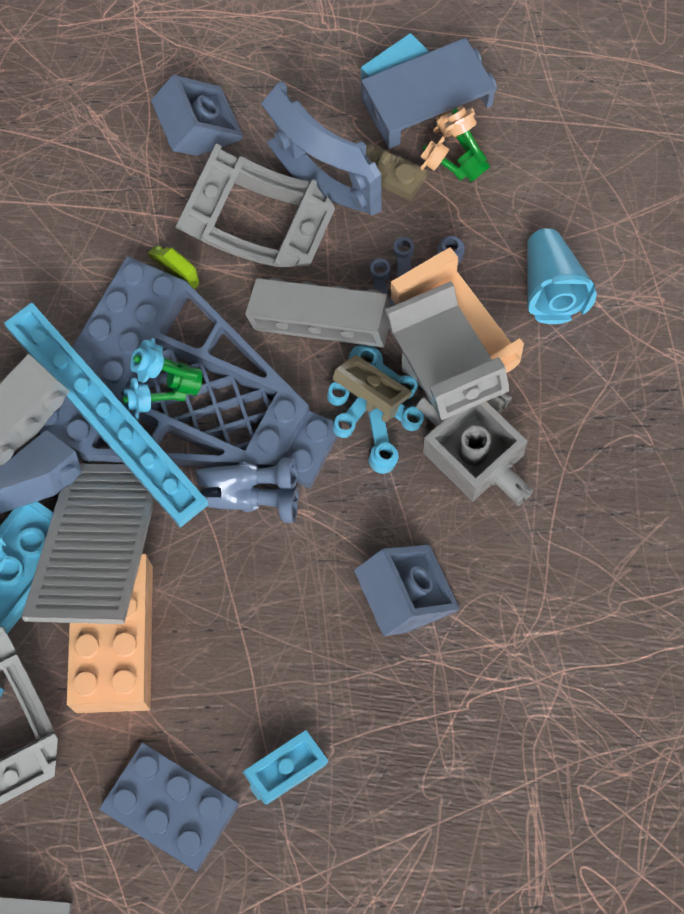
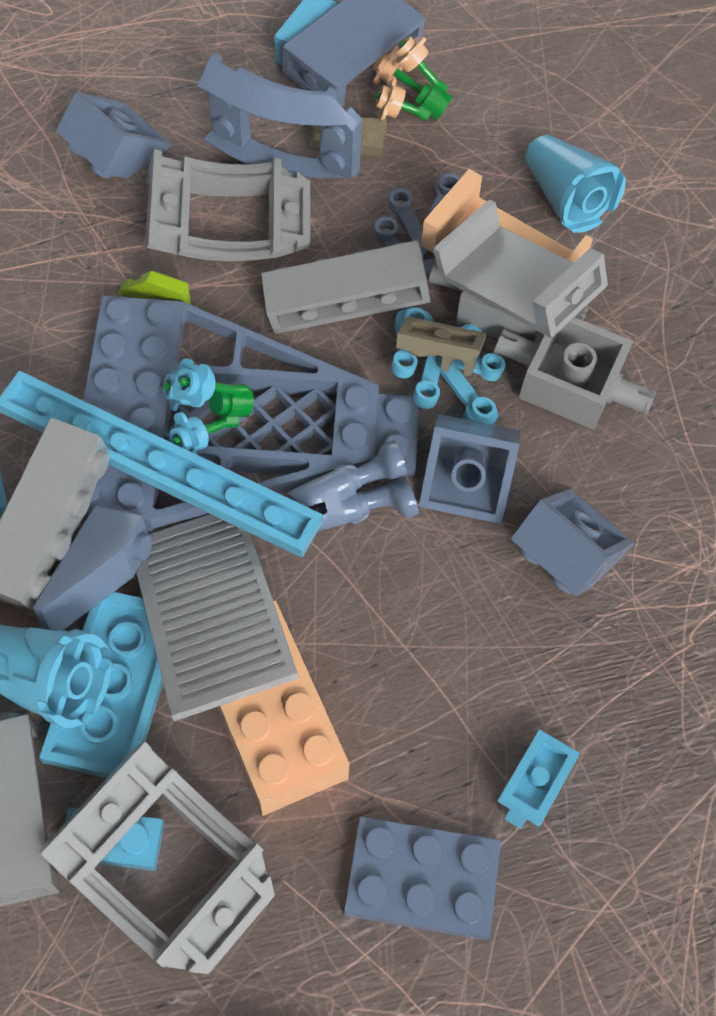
camera: 30 degrees left, 5 degrees down
(352, 498) = (470, 468): none -> sand blue slope

